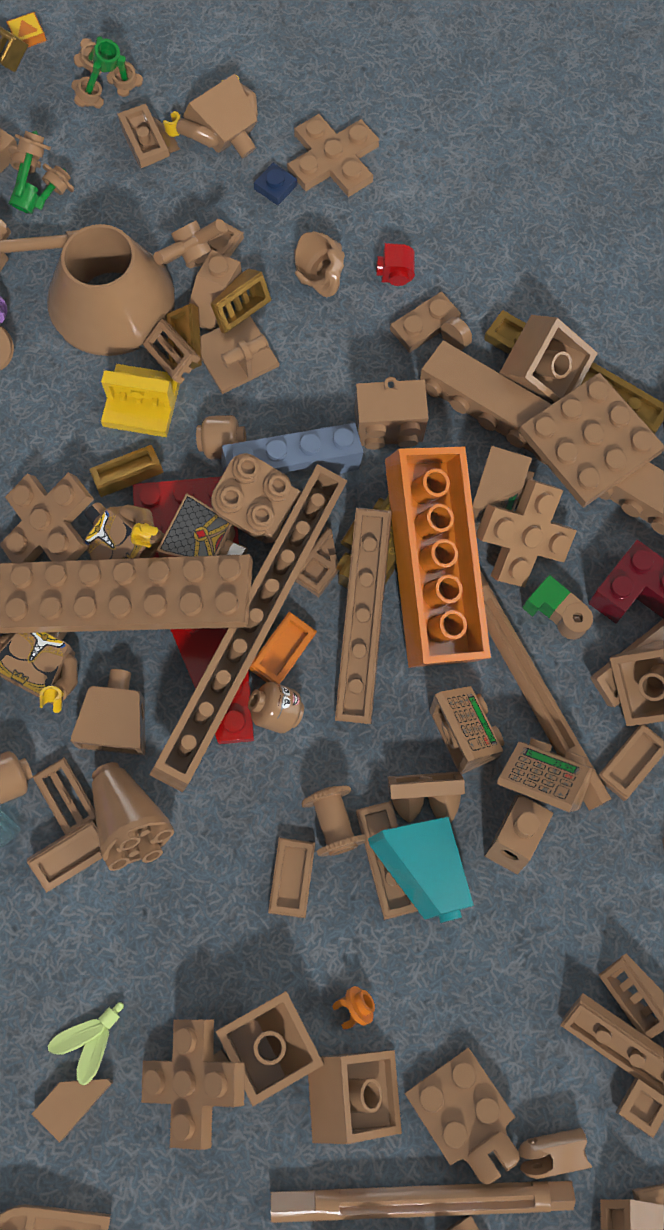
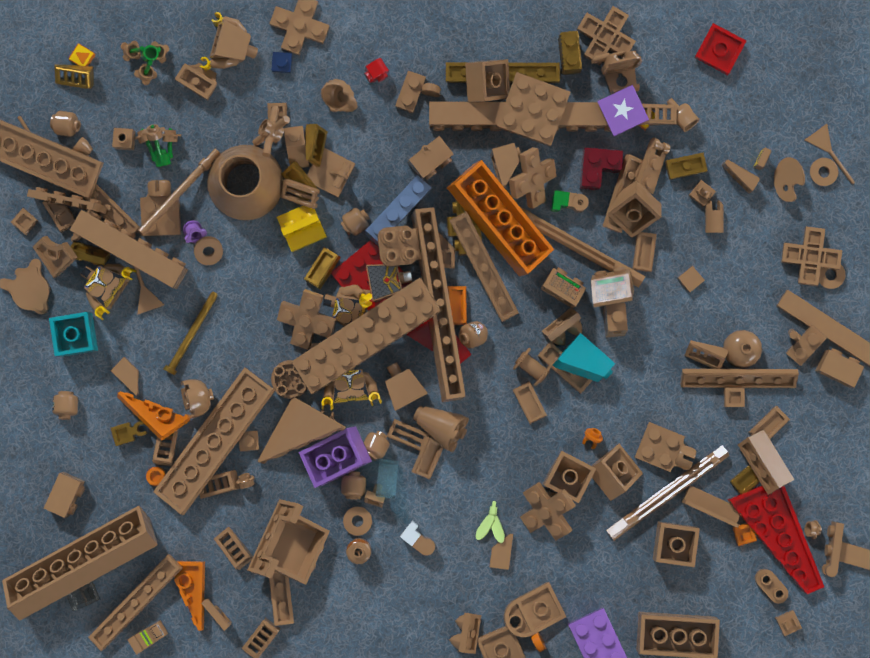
camera: 35 degrees left, 15 degrees up
(554, 1154) = (709, 439): medium nougat piece -> none

